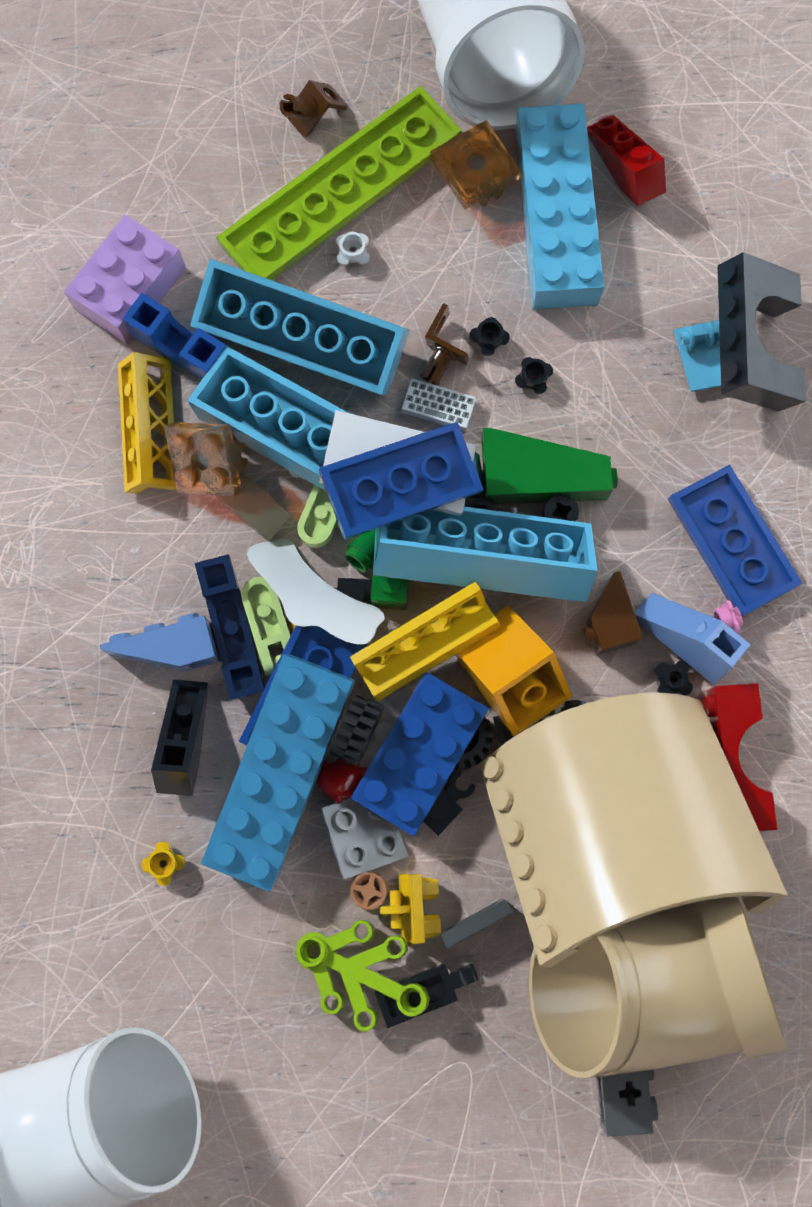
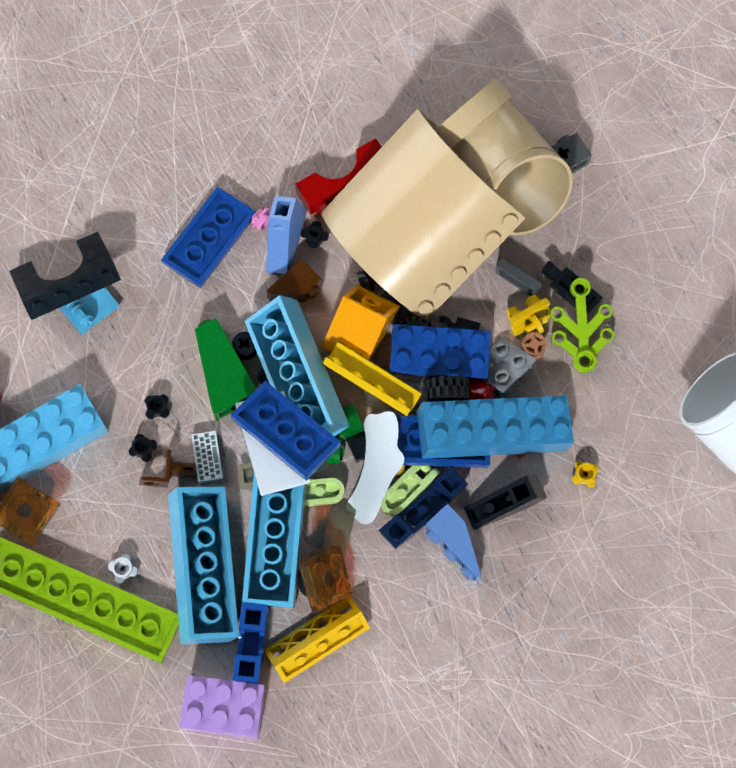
camera: 120 degrees left, 5 degrees down
(310, 106) = (27, 650): reddish brown bracket -> none

